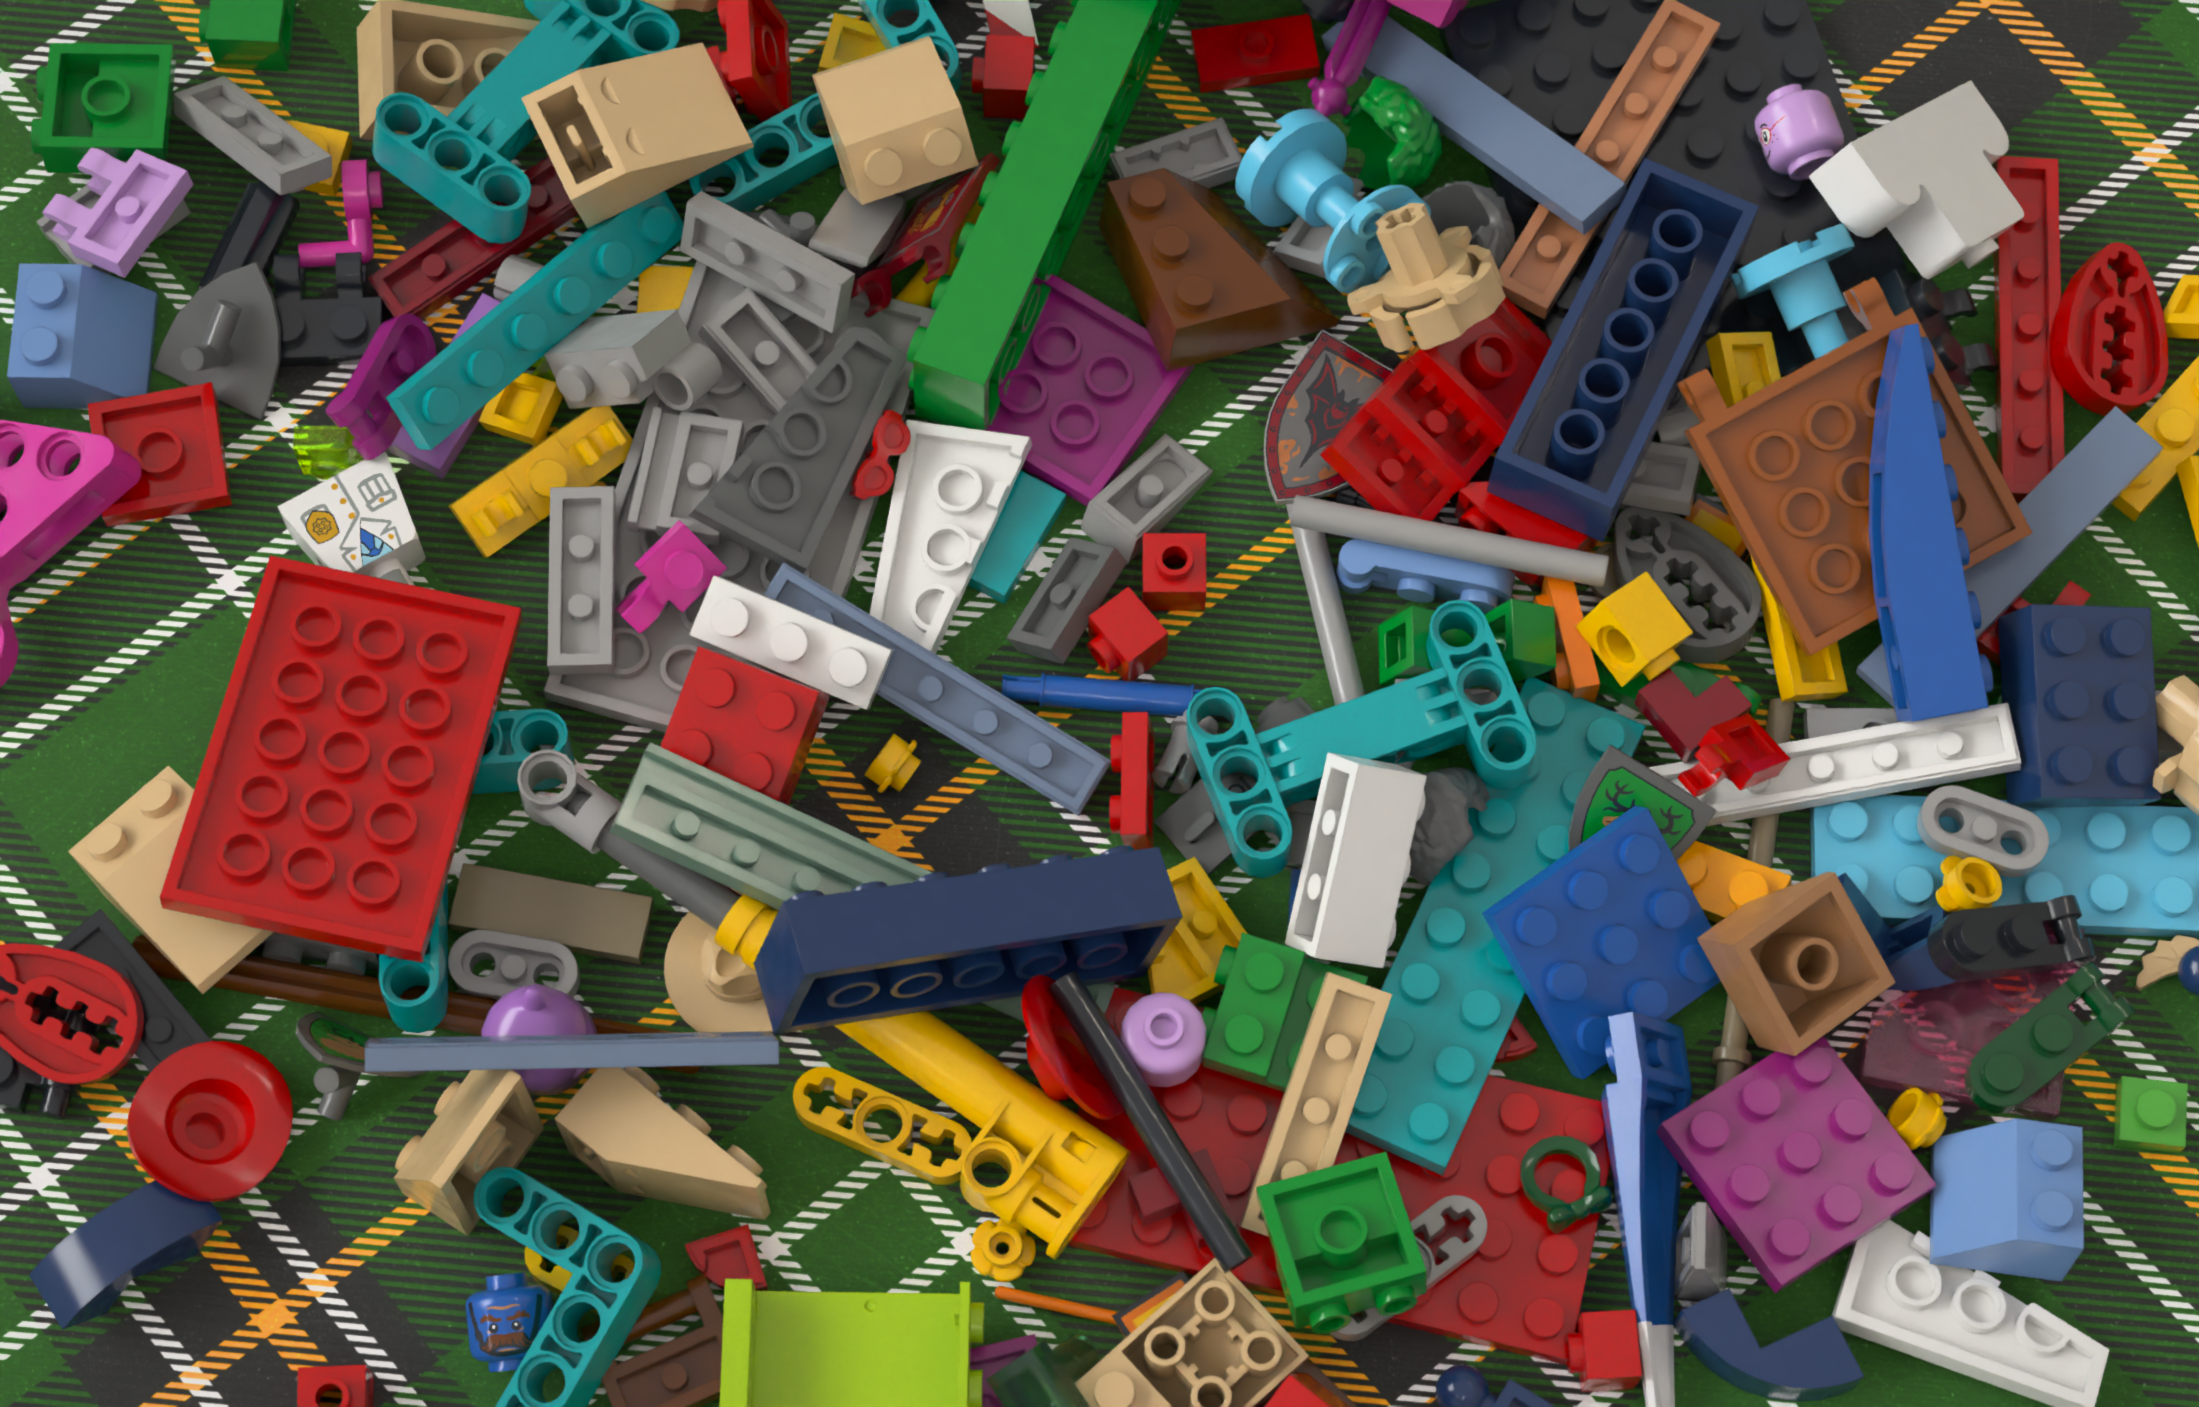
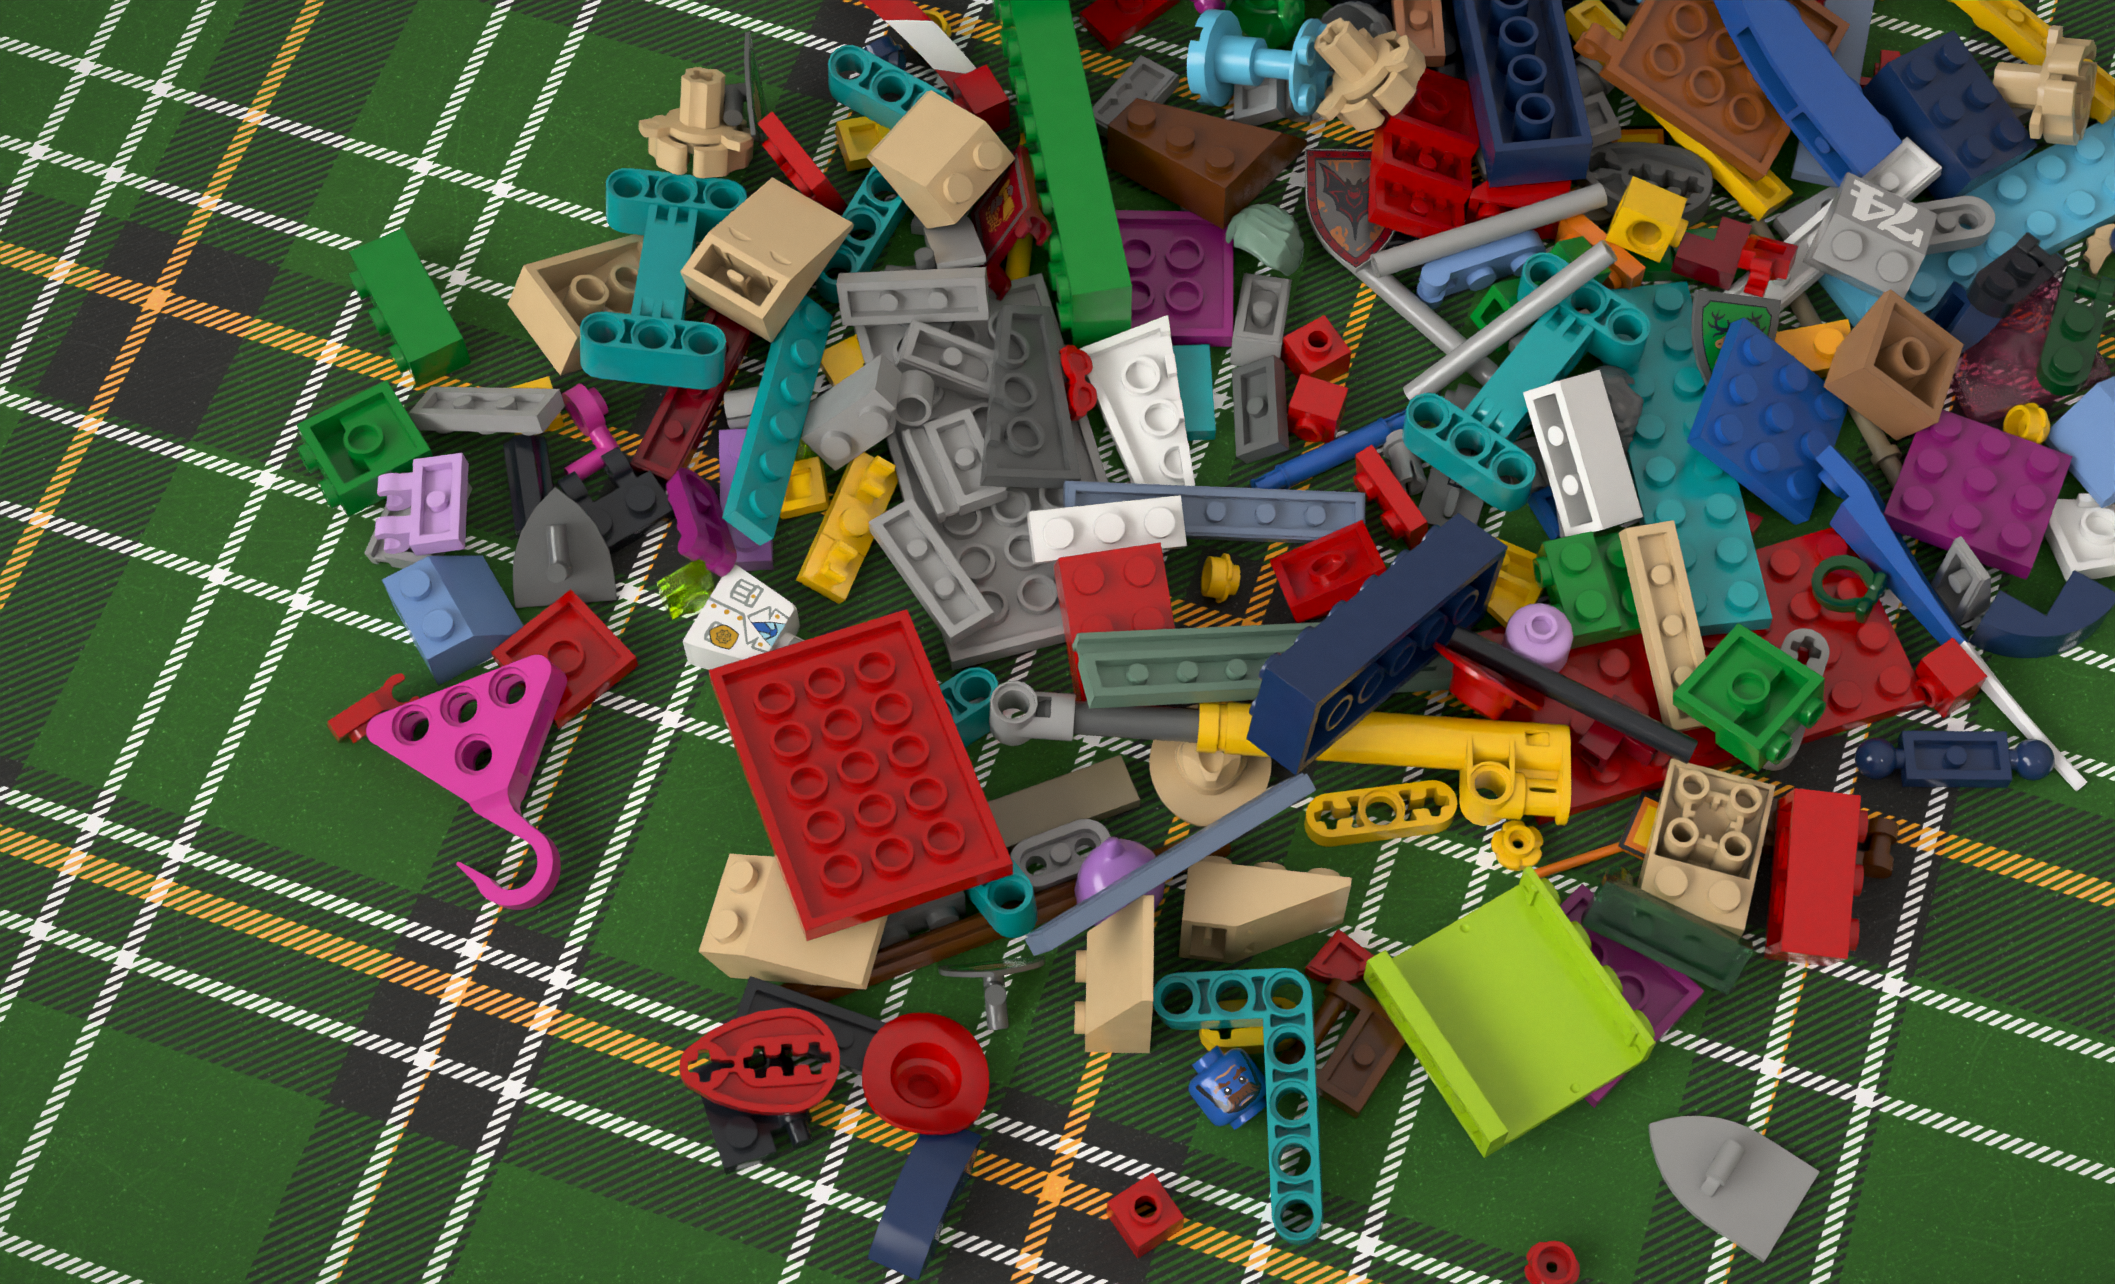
camera: 30 degrees left, 5 degrees down
(676, 570) = (995, 530): dark pink plate -> none
(1000, 823) = (1327, 570): none -> red plate
(1204, 411) = (1268, 235): none -> sand green hair
(1385, 663) = (1513, 320): none -> light grey piece
(1871, 799) = (1871, 238): none -> light grey slope
(1968, 884) = (1961, 261): yellow plate -> none

